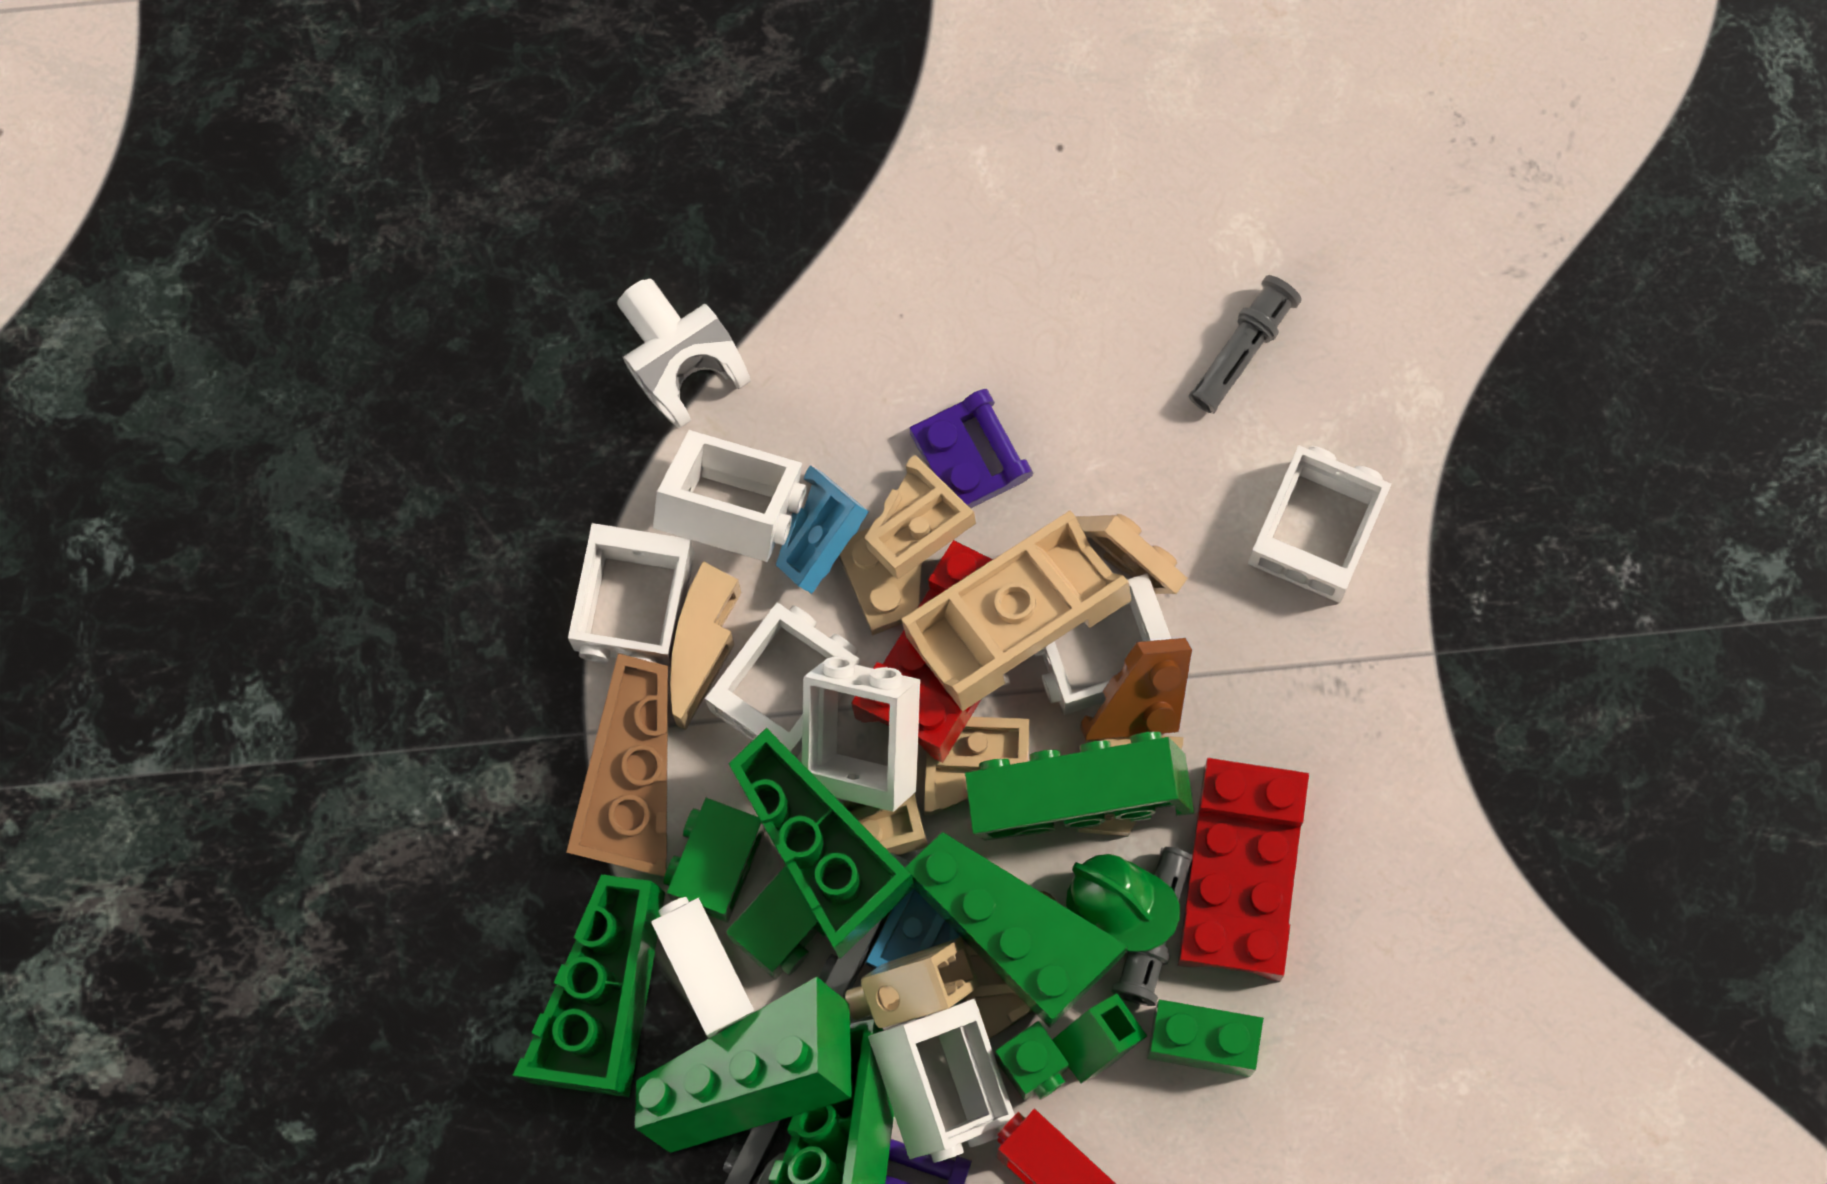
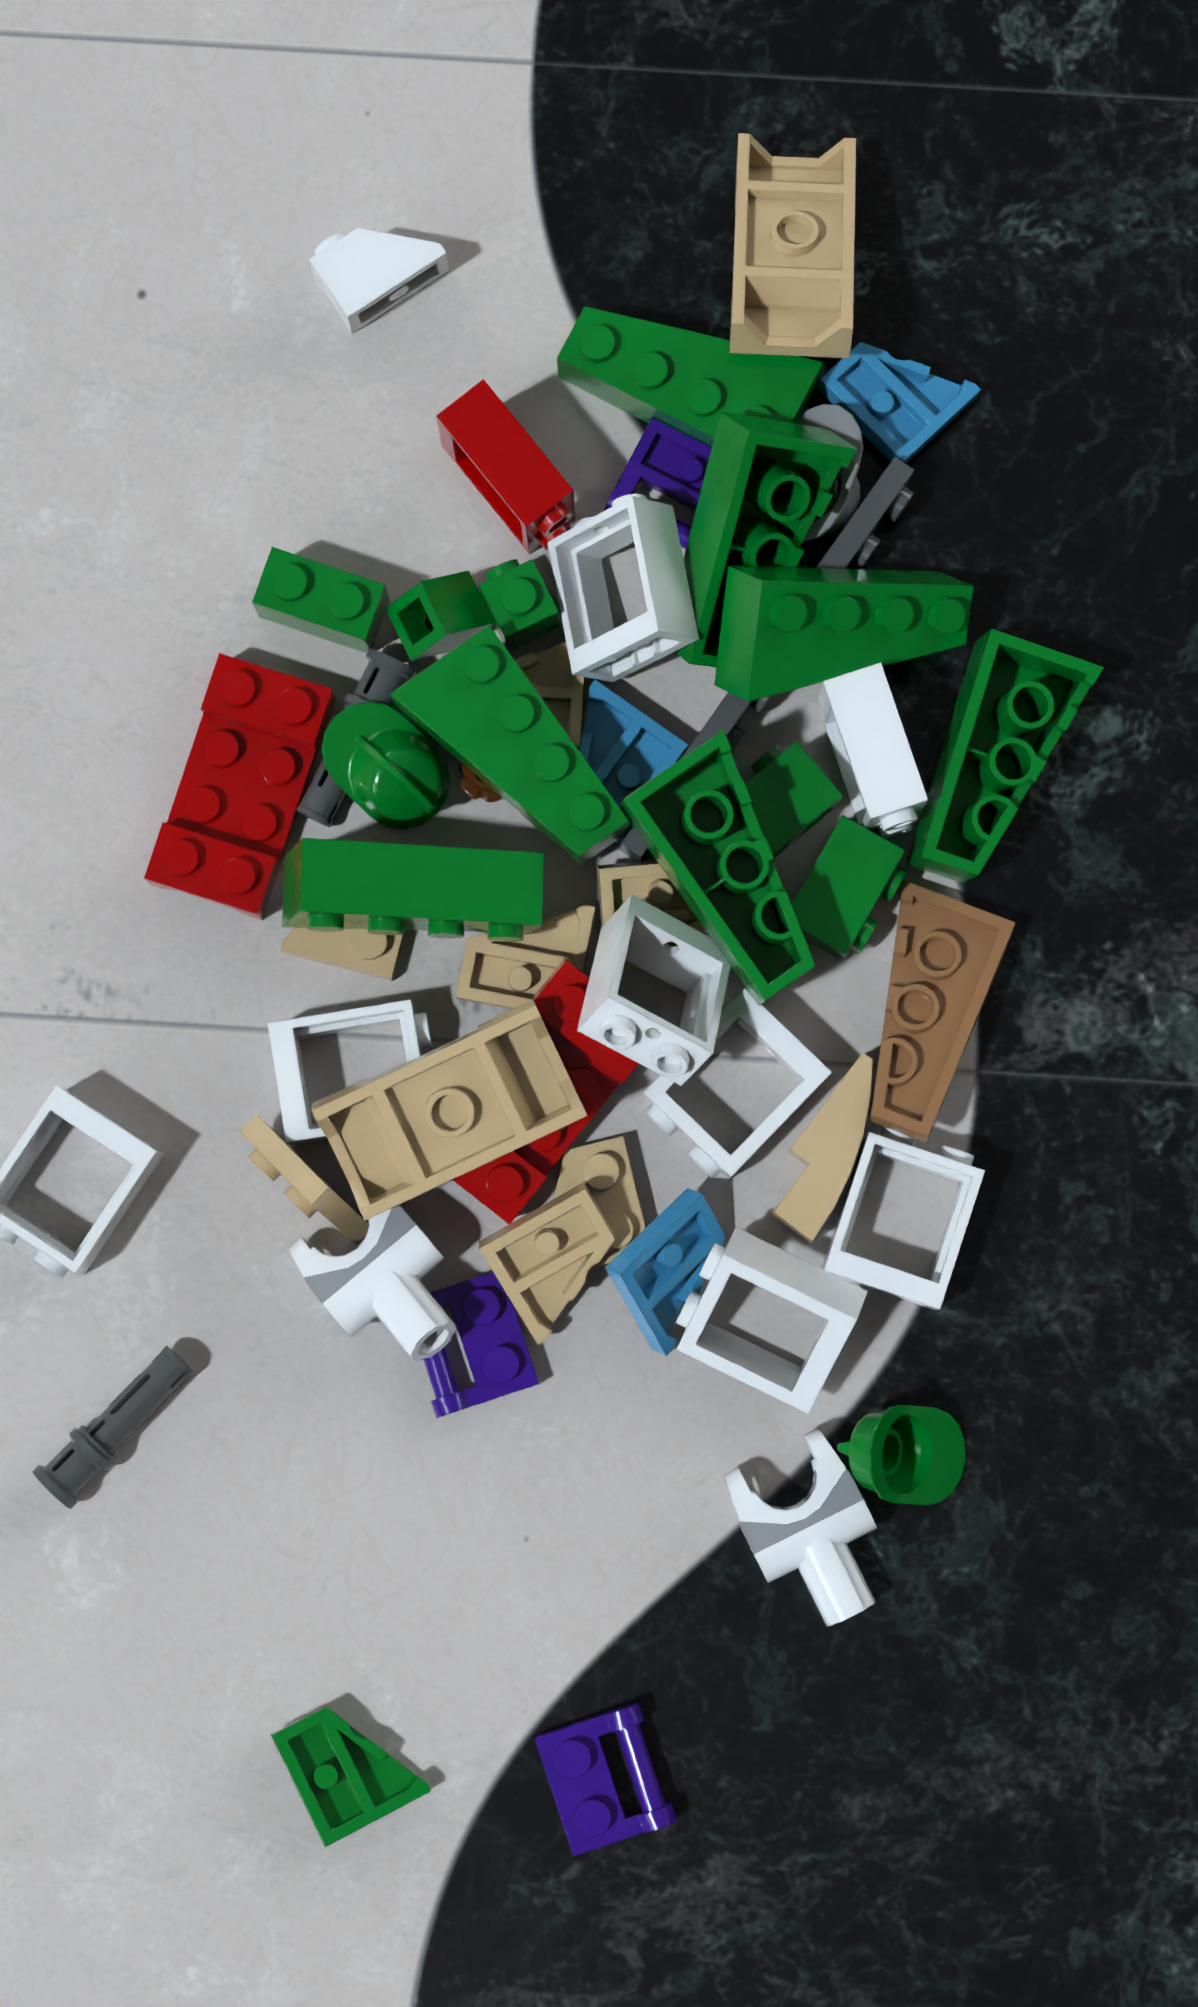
camera: 170 degrees left, 10 degrees up
(606, 413) = (907, 1454): none -> green piece
(825, 142) = (585, 1785): none -> dark purple plate
(914, 985) = (635, 693): tan torso -> none
(1013, 120) = (343, 1774): none -> green wing
(1050, 477) = (382, 1282): none -> white connector
(1144, 693) = (316, 996): dark orange wing -> none

